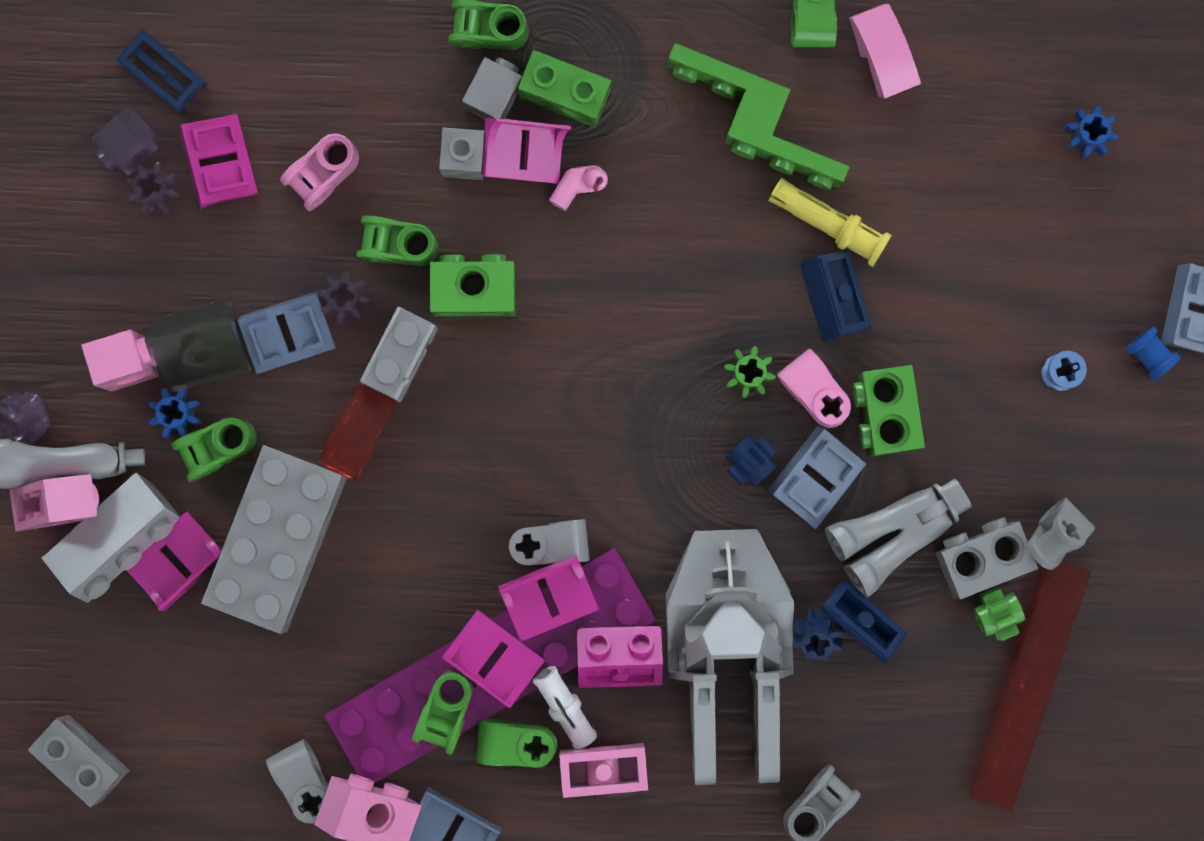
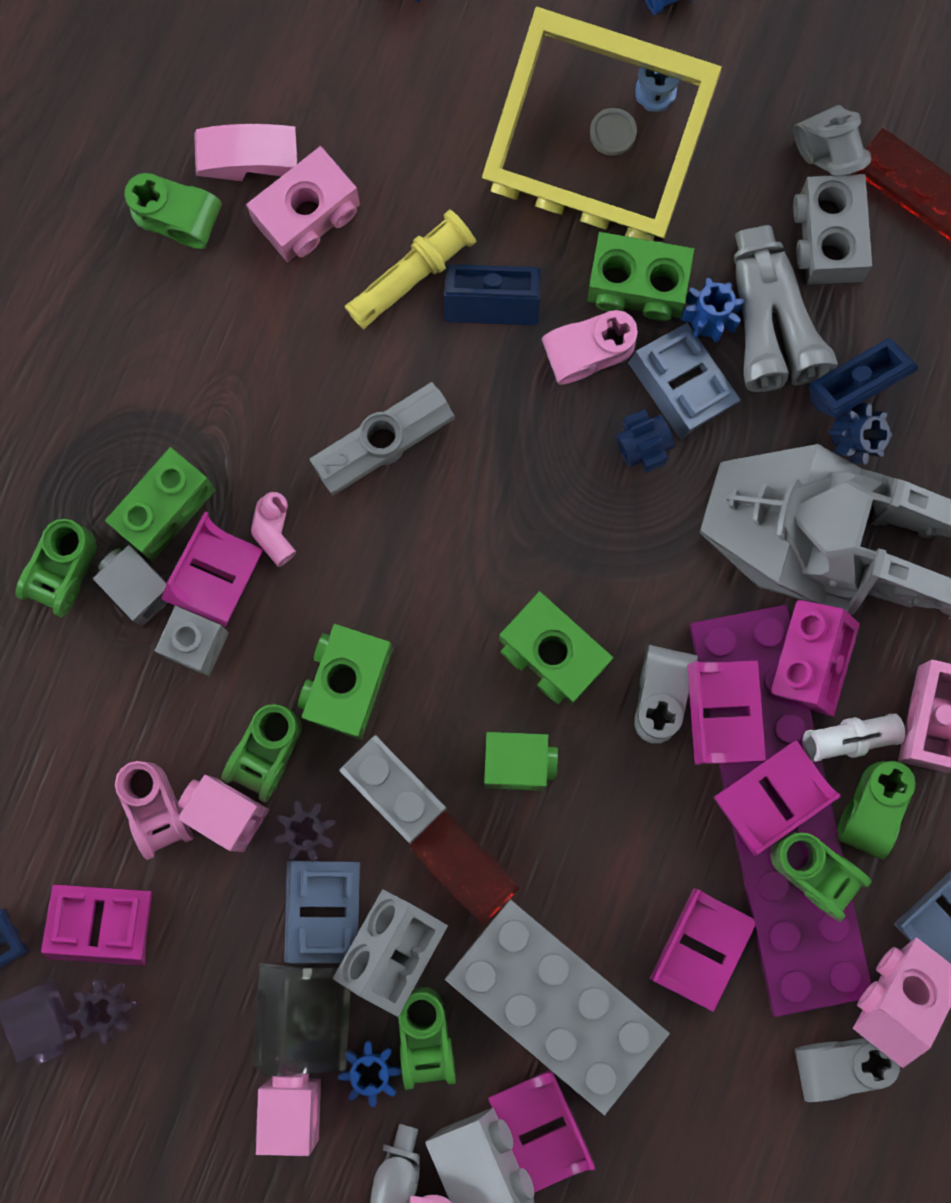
camera: 60 degrees left, 5 degrees down
(270, 395) = (390, 952): none -> light grey brick
(333, 226) = (221, 813): none -> bright pink brick
(336, 640) = (691, 972): none -> dark pink piece
(452, 445) = (519, 761): none -> bright green brick
(566, 421) = (545, 622): none -> bright green brick
(659, 229) = (409, 422): none -> light grey piece
(756, 117) = (268, 309): bright green bracket -> none
(759, 366) = (540, 399): bright green gear -> none
(845, 93) = (311, 180): none -> bright pink brick
(871, 476) = (712, 309): none -> blue gear
(998, 614) = (899, 235): bright green gear -> none
(1011, 348) = (613, 131): none -> light grey piece
(1072, 335) = (624, 49): none -> light yellow window

